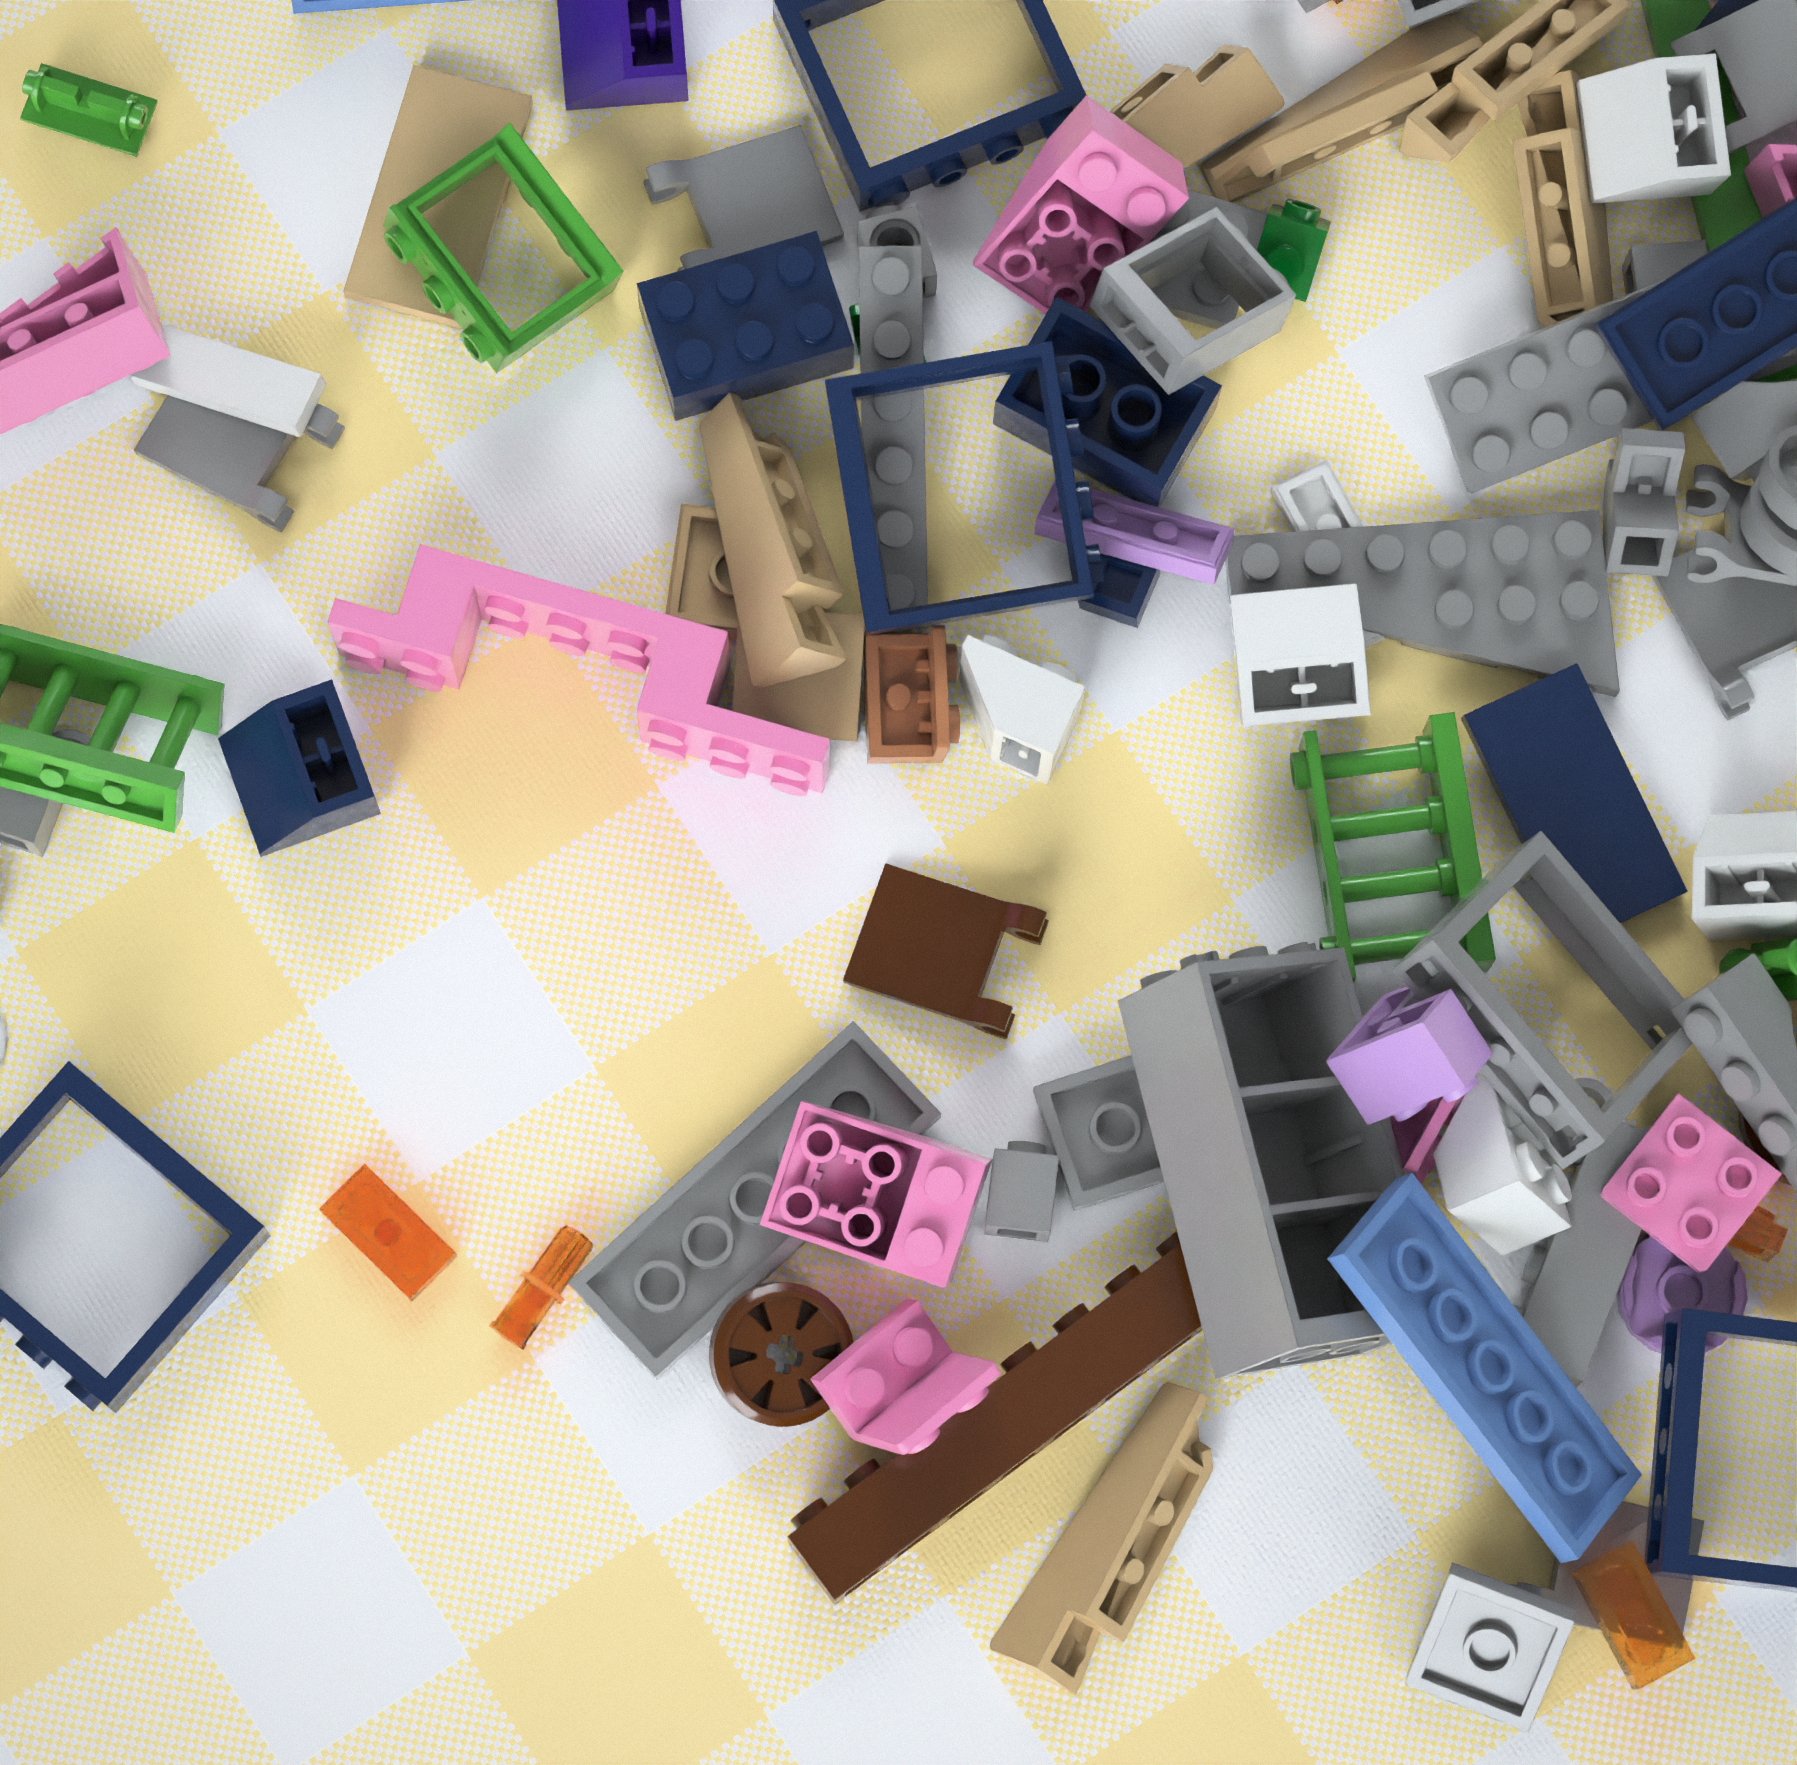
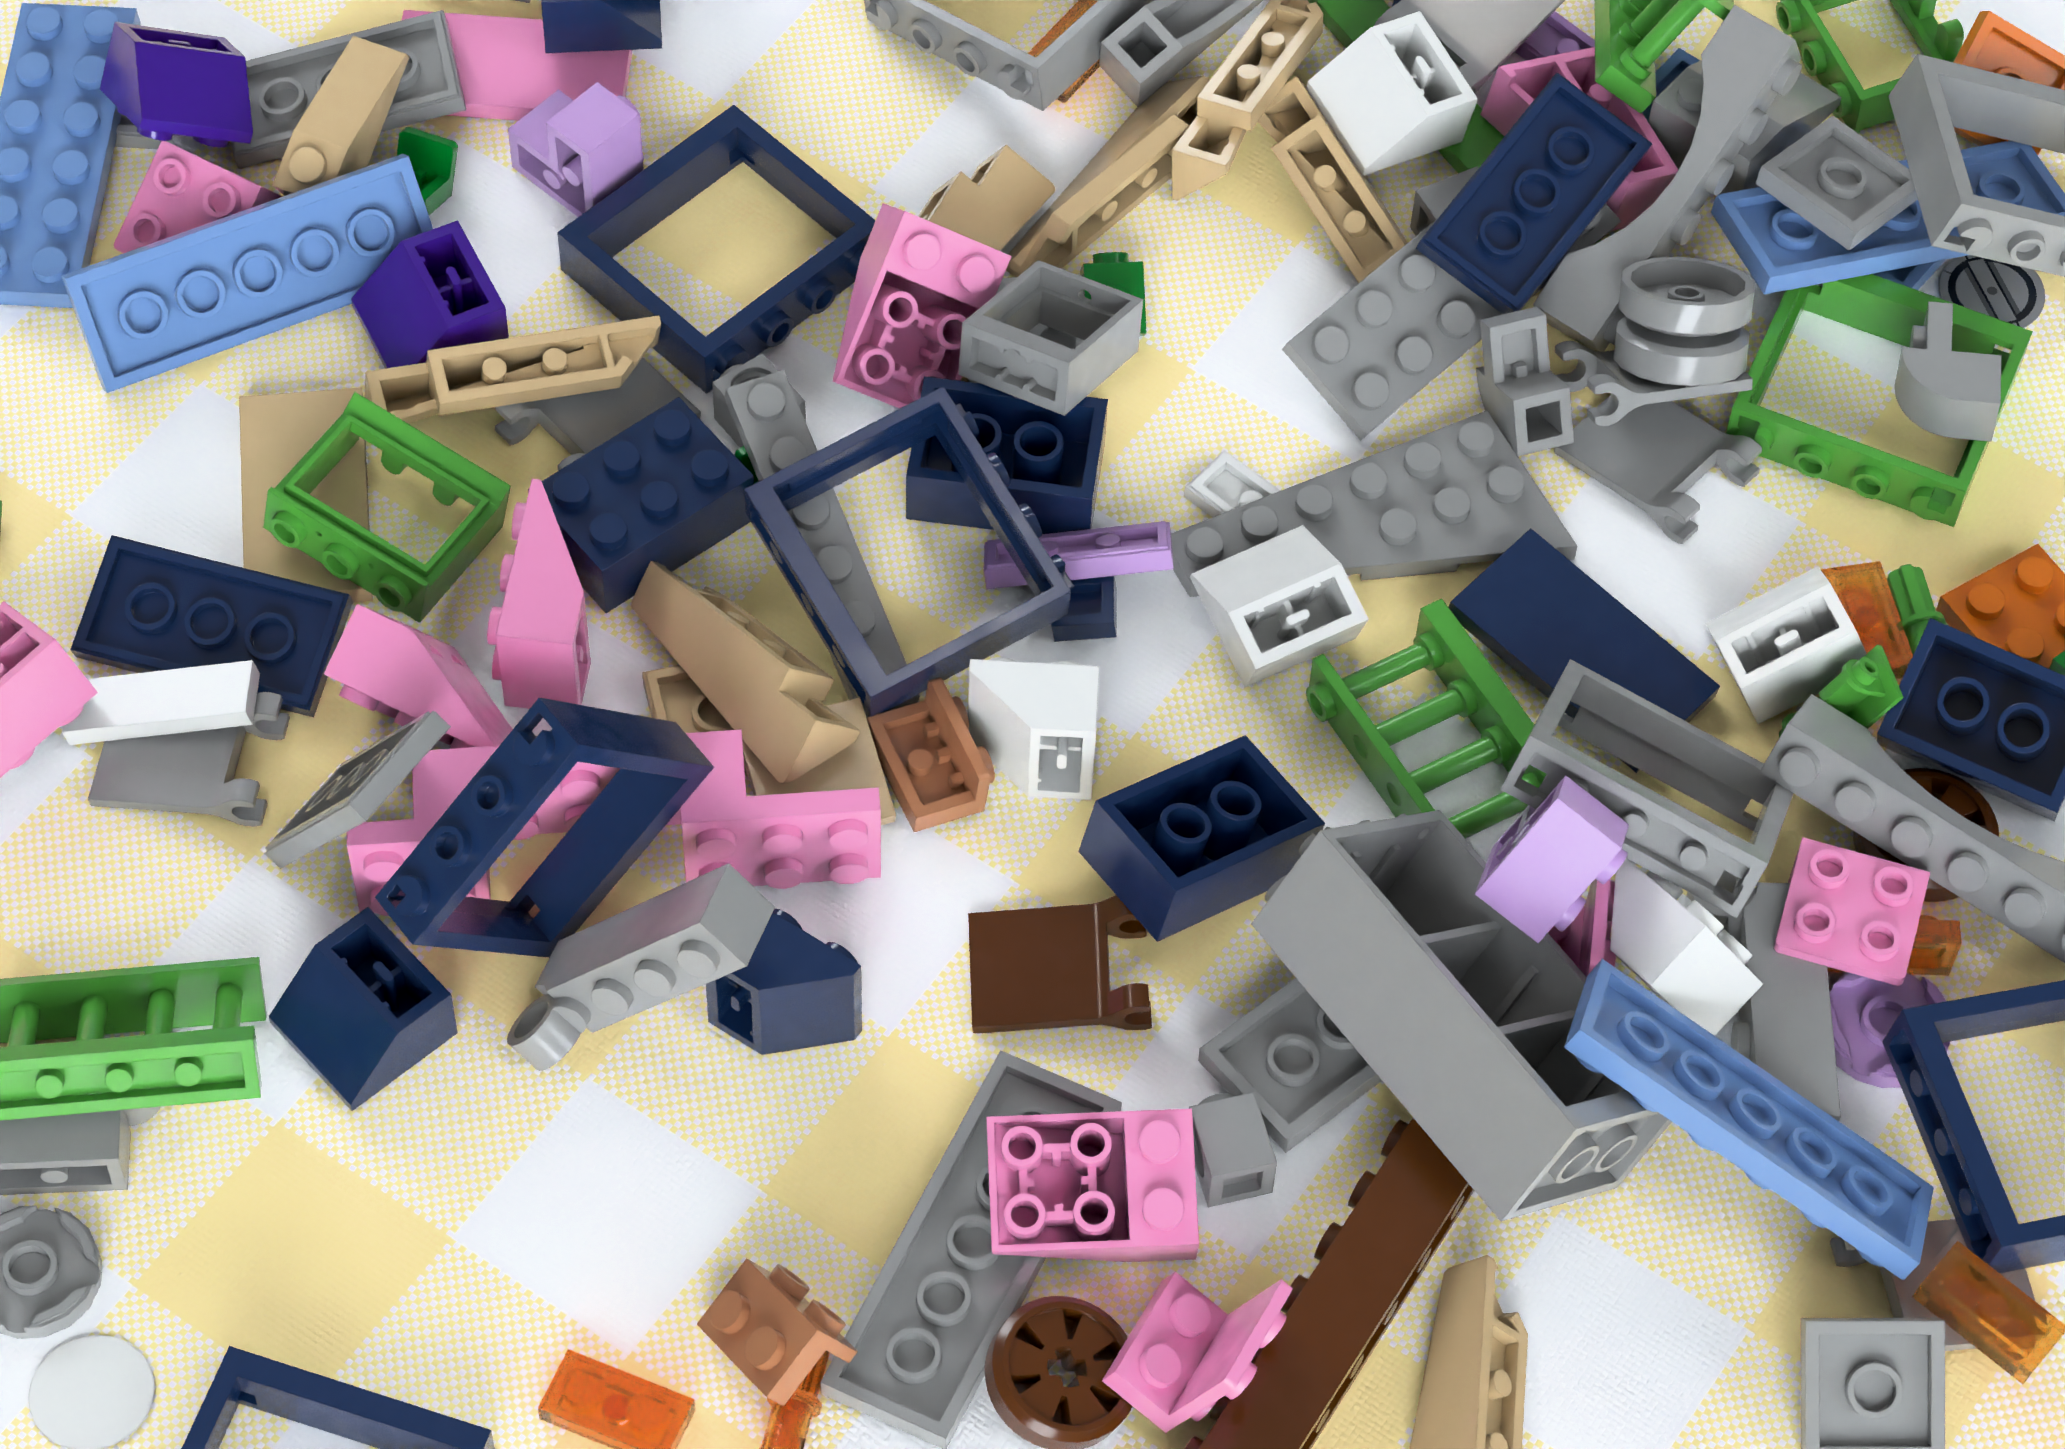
camera: 20 degrees left, 20 degrees down
(304, 308) = (187, 611): none -> dark blue tile
(358, 563) = (356, 789): none -> light grey tile
(470, 464) = (411, 673): none -> bright pink slope
(545, 1219) = (773, 1329): none -> nougat bracket
(548, 831) = (641, 961): none -> light grey hinge
(560, 673) = (654, 780): none -> dark blue window
(597, 439) = (543, 617): none -> bright pink slope
(671, 886) = (790, 992): none -> dark blue slope
(672, 140) = (514, 370): none -> tan wedge
(1118, 882) = (1198, 837): none -> dark blue brick

